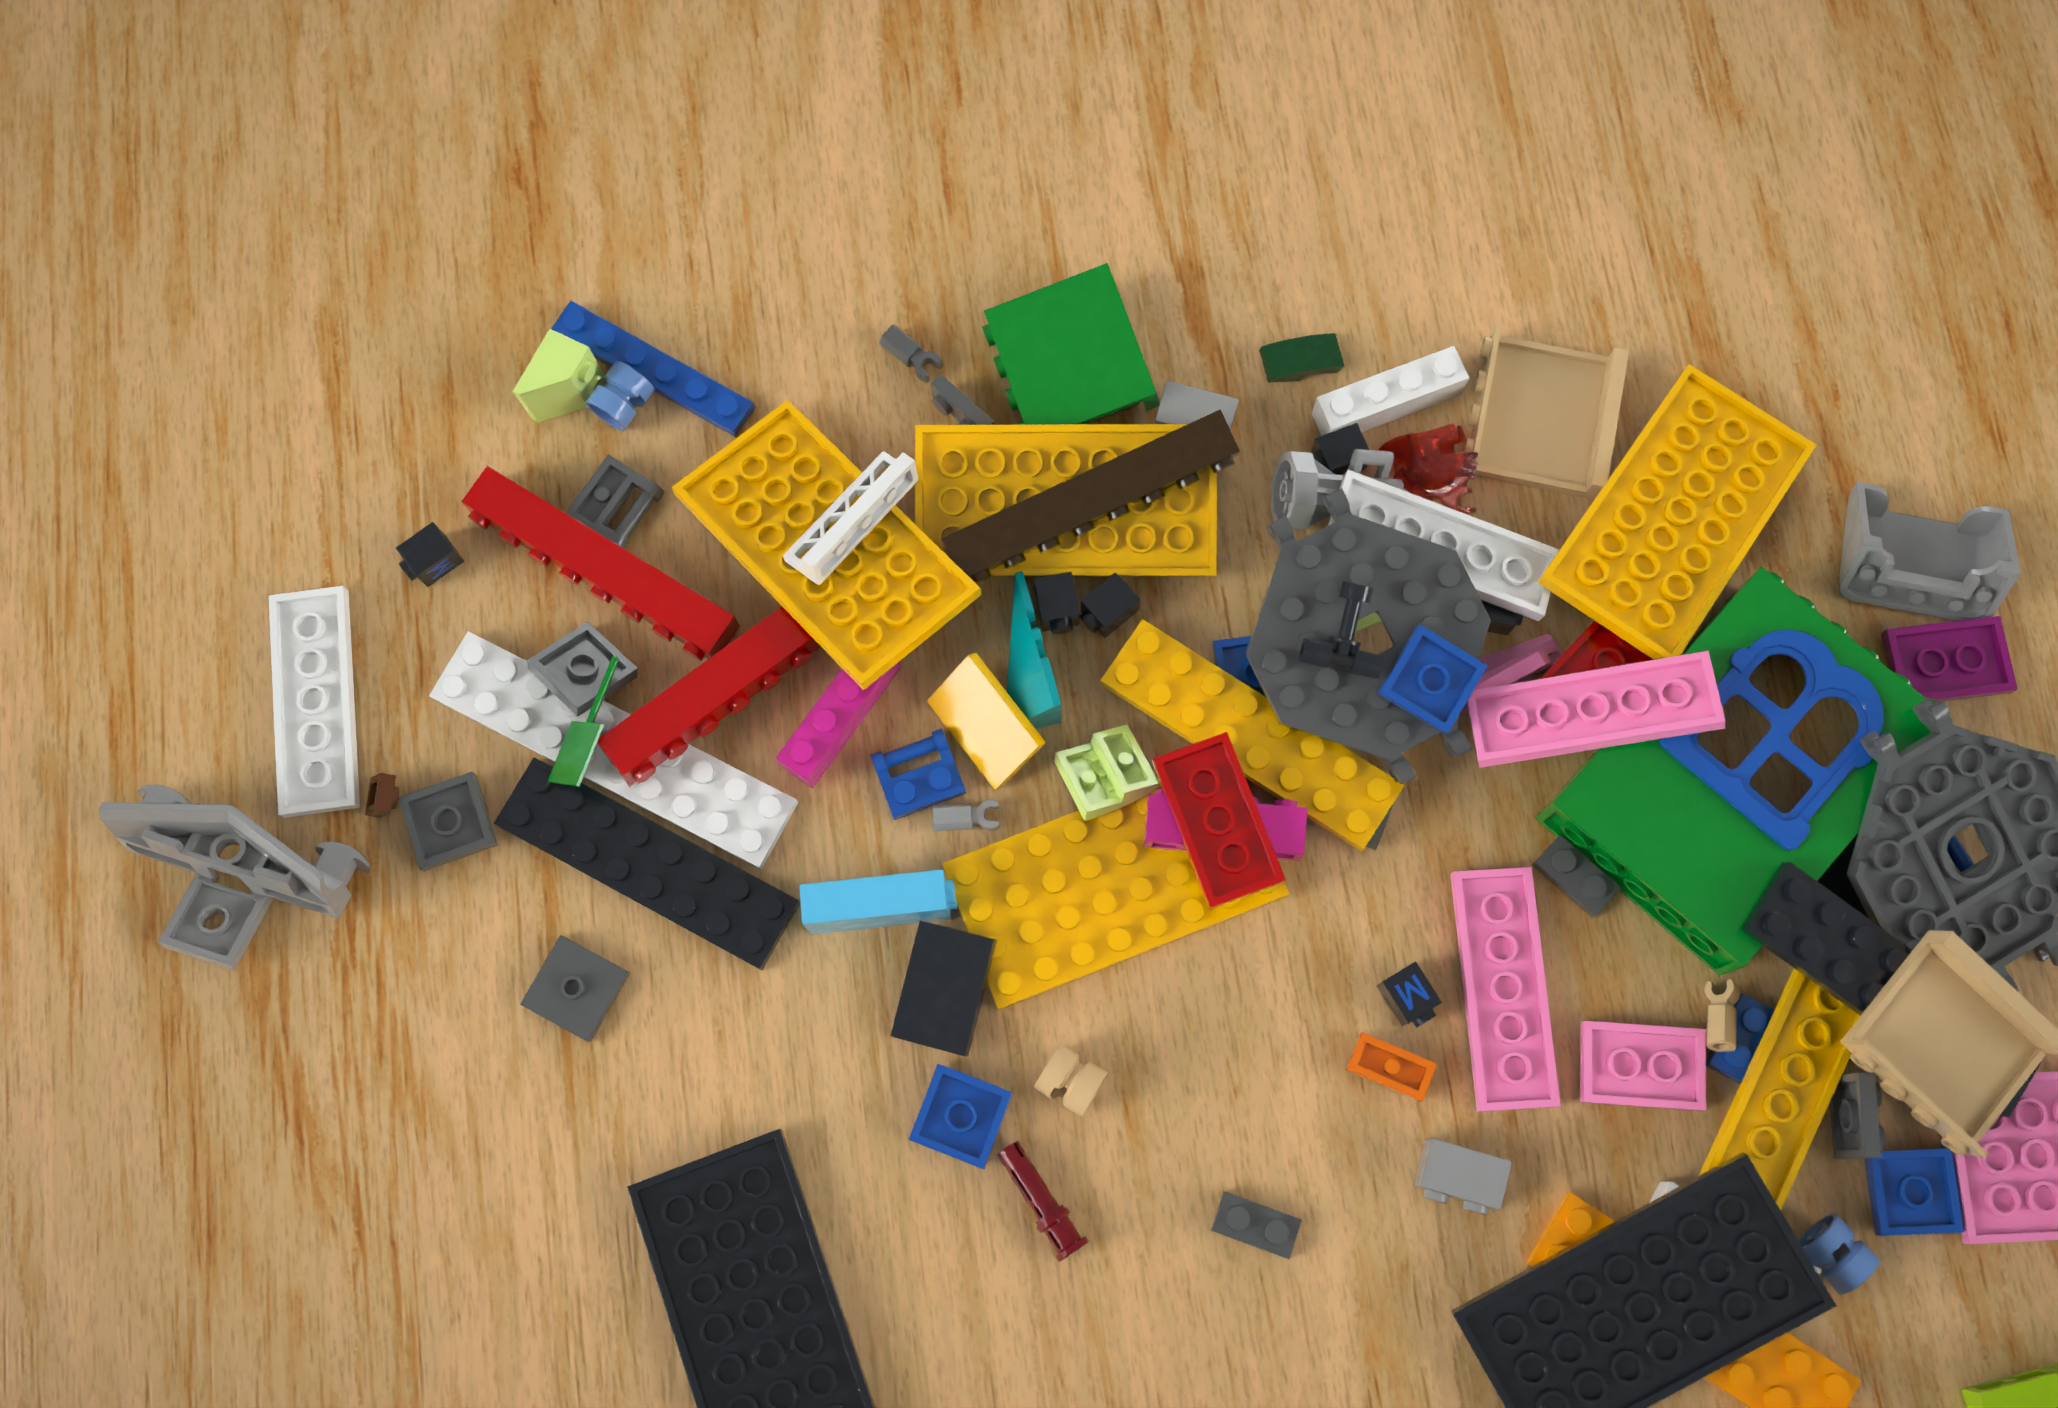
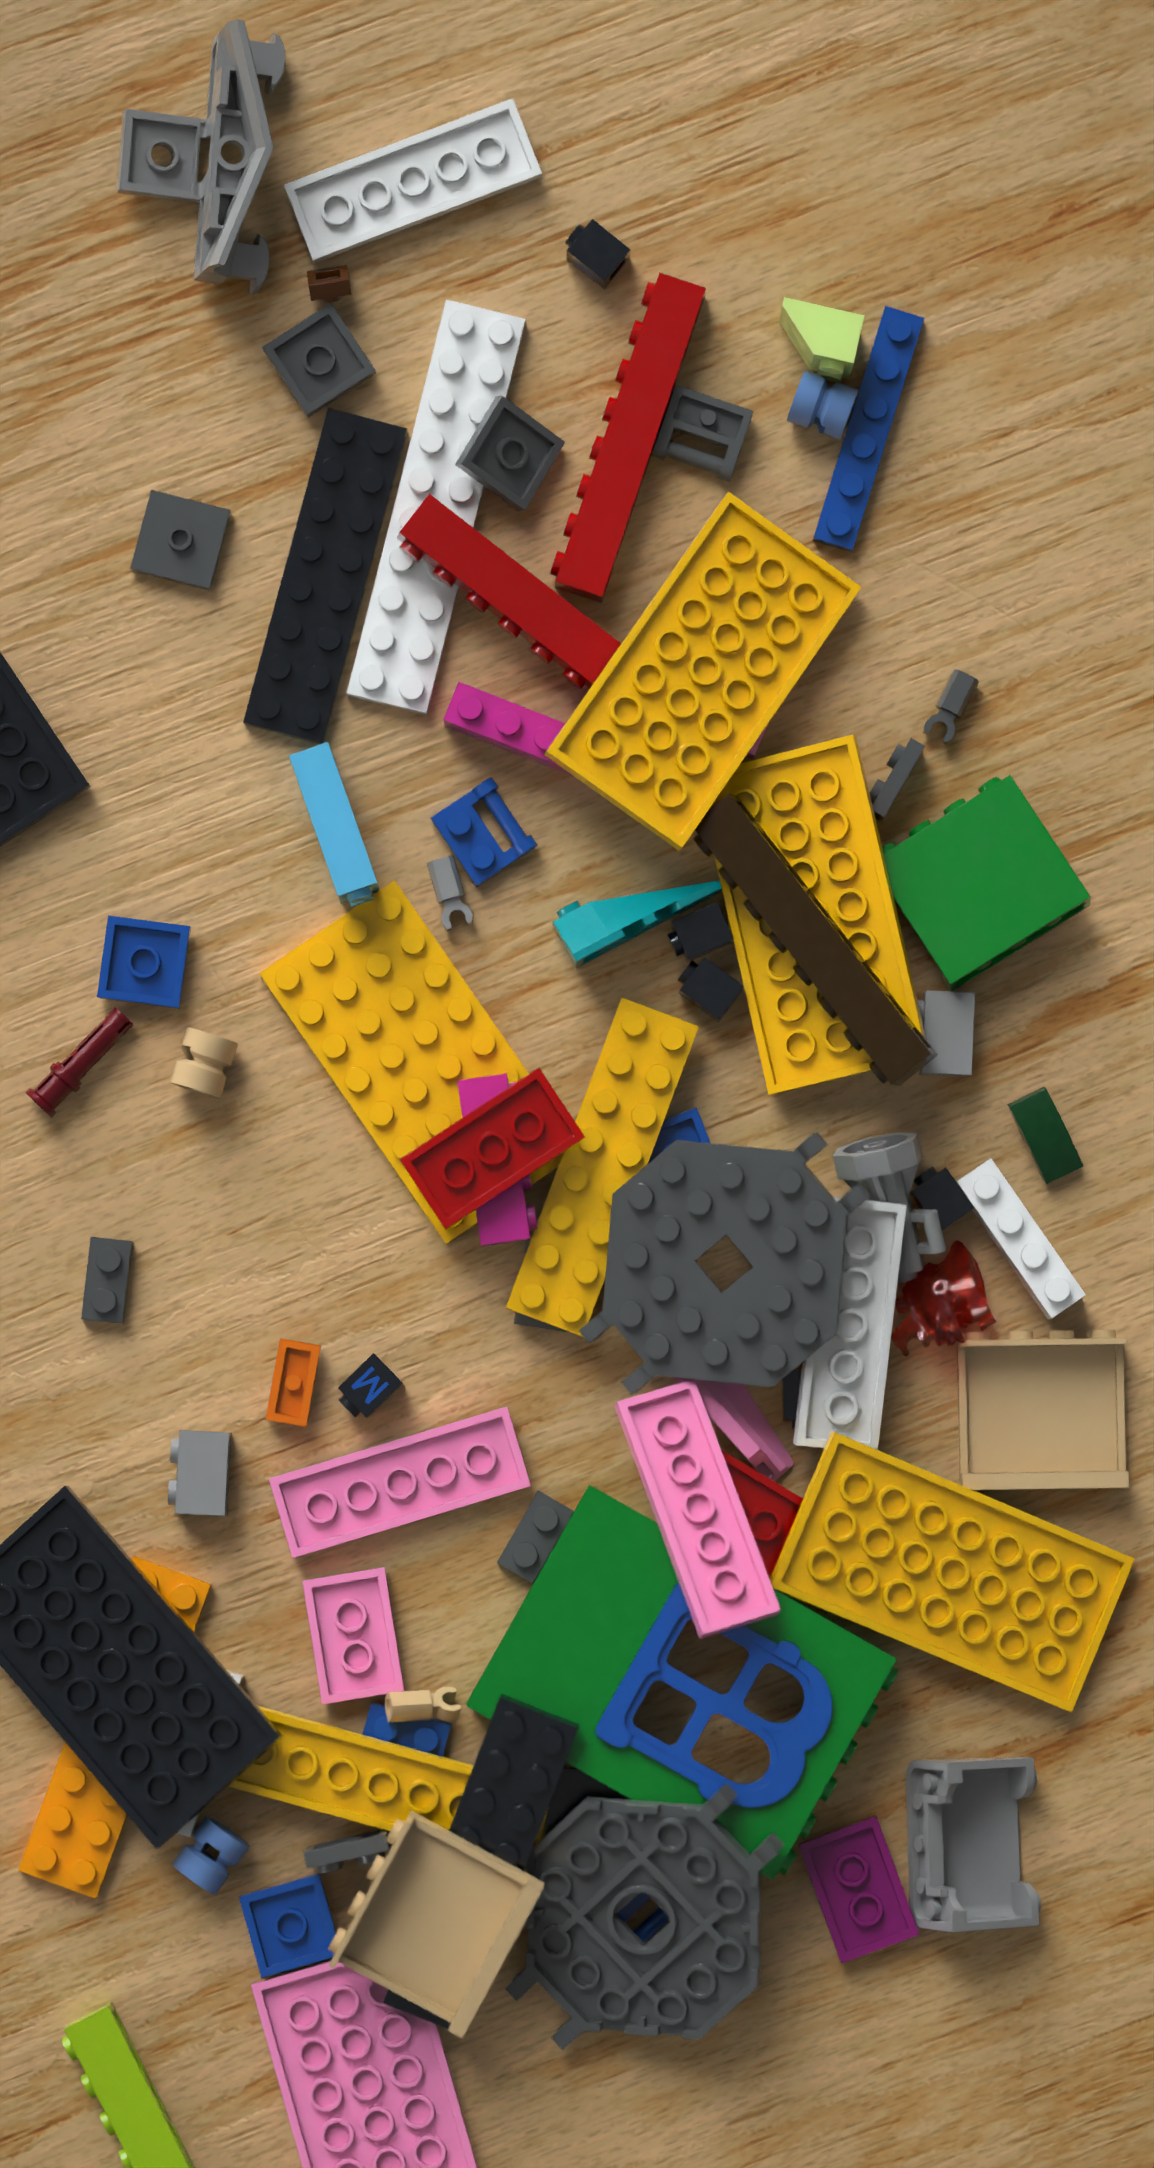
camera: 70 degrees right, 10 degrees up
(581, 740) = (427, 476): green piece -> none
(856, 521) = (728, 701): white fence -> none
(943, 988) = (266, 913): black tile -> none
(985, 721) = (551, 888): yellow tile -> none
(1106, 772) = (528, 1025): yellowish green slope -> none
(1342, 649) = (698, 1236): black bar -> none
(1432, 679) = (689, 1335): blue plate -> none

